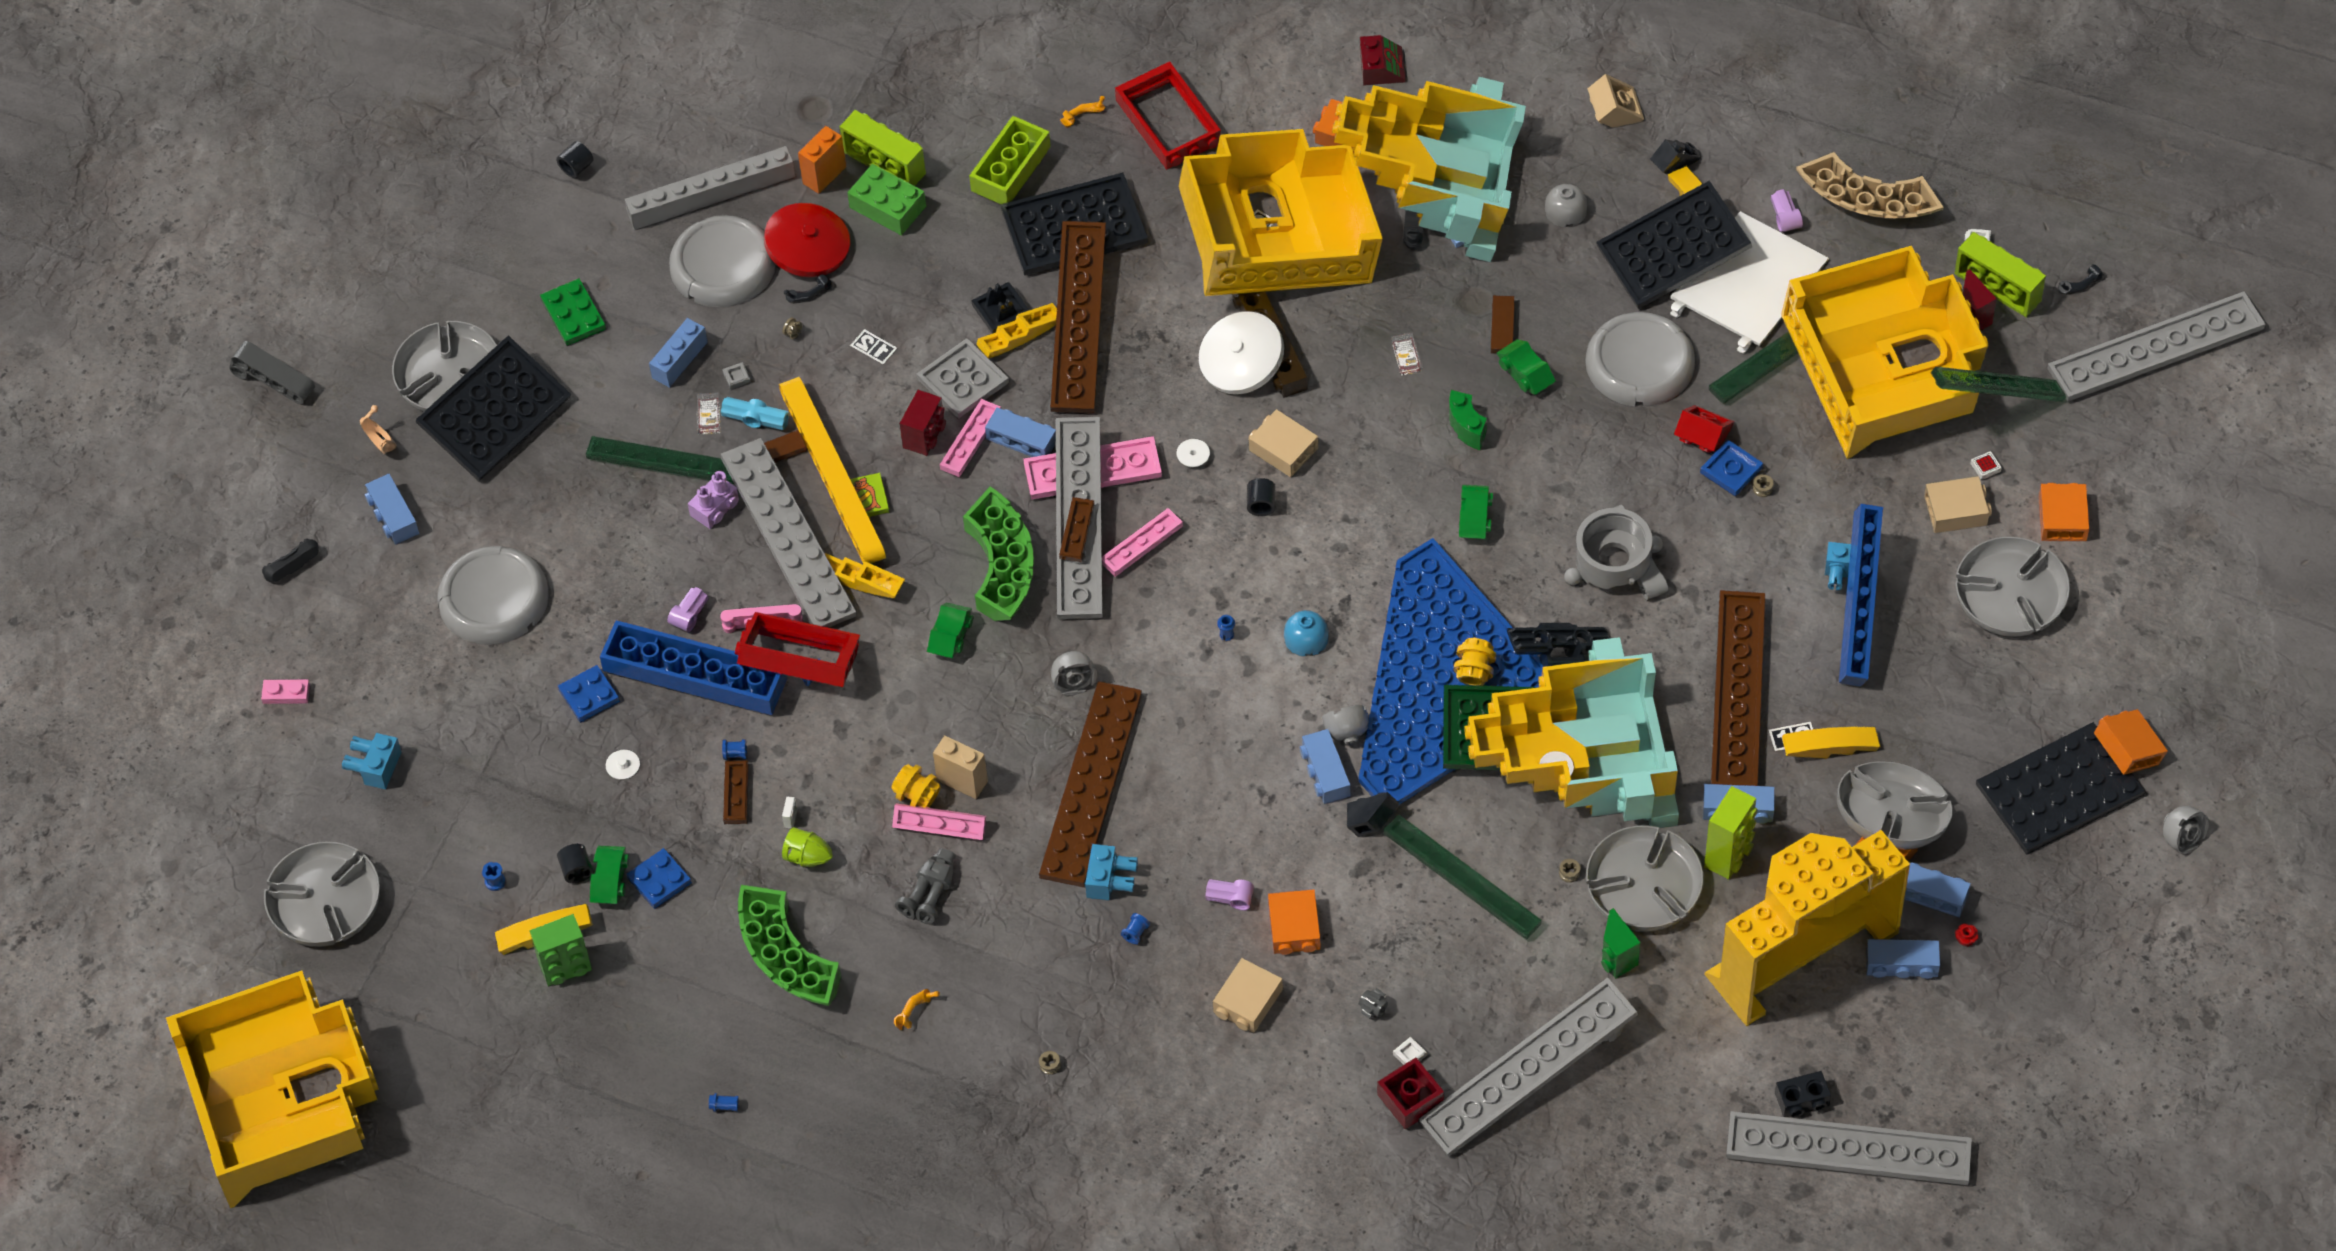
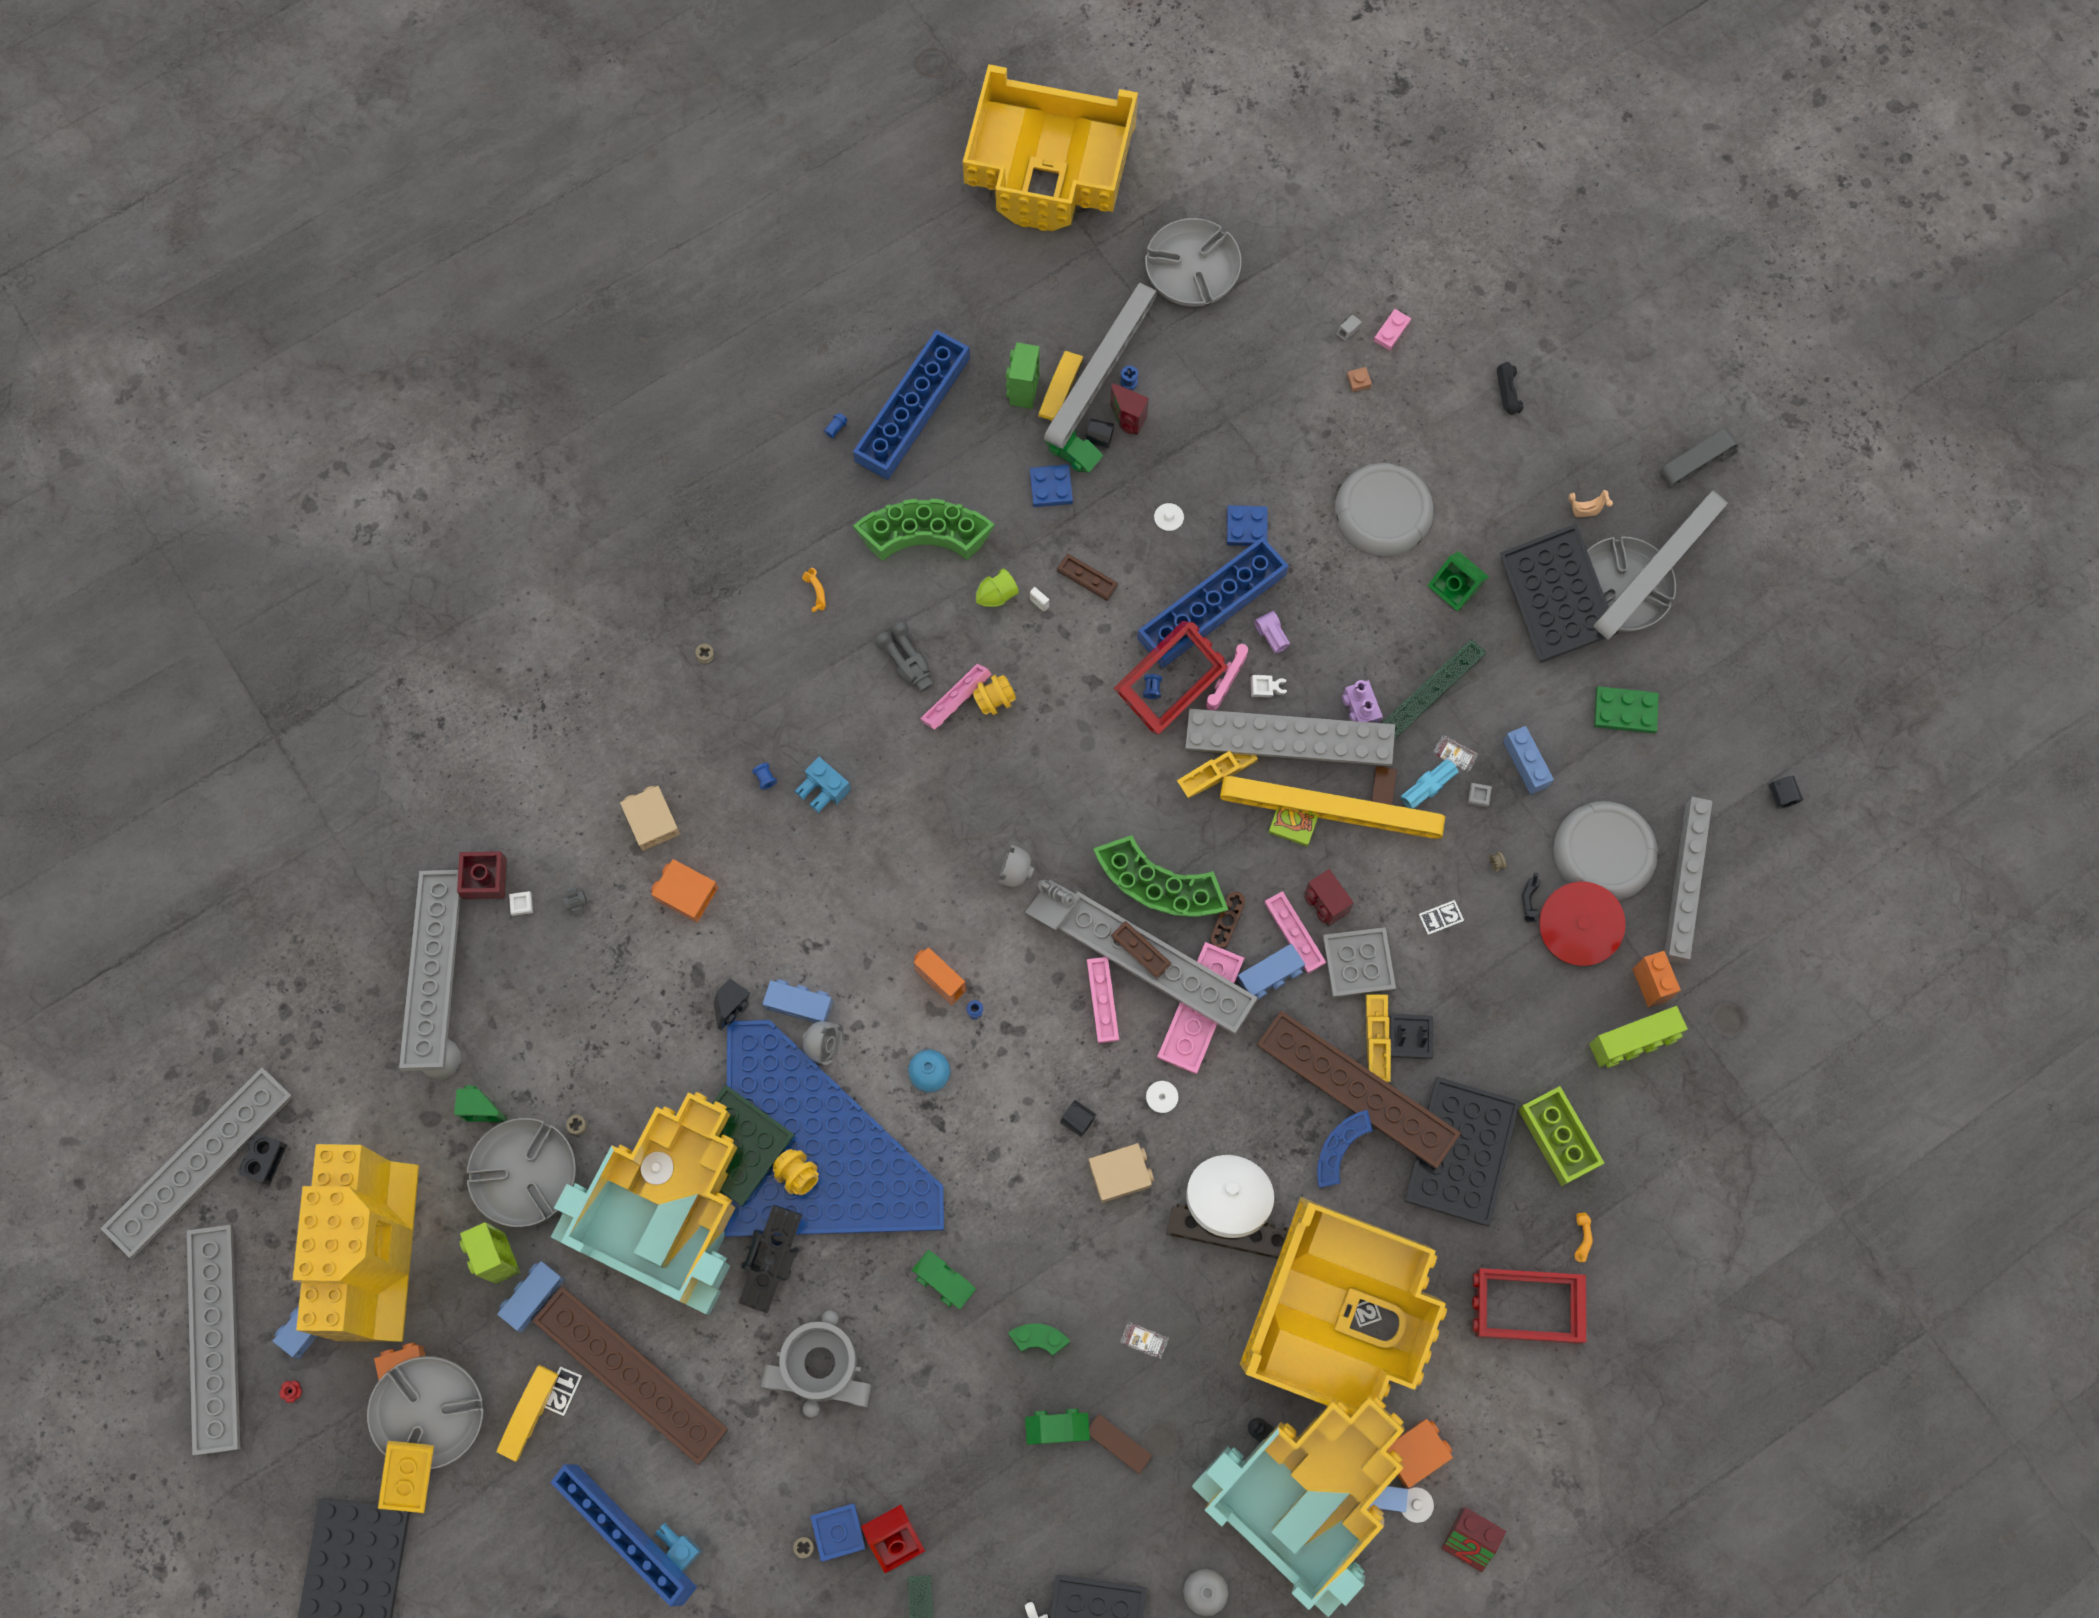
camera: 120 degrees right, 15 degrees up
(309, 725) = (1349, 327): none -> light grey piece
(362, 689) = (1359, 379): none -> nougat plate
(380, 760) = (1282, 355): dark azure brick -> none
(391, 509) = (1511, 478): medium blue brick -> none
(412, 341) = (1660, 565): none -> light grey beam
(499, 898) = (1100, 366): none -> light grey beam
(531, 494) = (1457, 580): none -> green slope
(535, 847) = (1129, 408): none -> dark red slope
(655, 1041) = (911, 404): none -> blue brick
(734, 749) = (1122, 593): blue bush -> none
(747, 587) = (1264, 686): none -> white plate
(886, 199) = (1585, 1012): bright green brick -> none
(949, 630) = (1119, 804): green brick -> none
(960, 767) = (983, 730): tan brick -> none
(1001, 486) = (1238, 909): none -> reddish brown beam
(1084, 626) = (1052, 903): none -> light grey hinge
(1090, 783) = (914, 827): reddish brown plate -> none
(1137, 307) = (1336, 1145): none -> blue tile
(1217, 665) = (939, 975): none -> orange brick
(1236, 894) = (738, 865): lavender piece -> none
(1462, 877) = (629, 1039): clear green plate -> none
(1640, 359) = (1002, 1538): light grey piece -> none
(1936, 890) = (343, 1393): medium blue brick -> none
(1954, 789) = (406, 1476): none -> yellow tile
(1977, 1024) = (213, 1340): none -> light grey plate

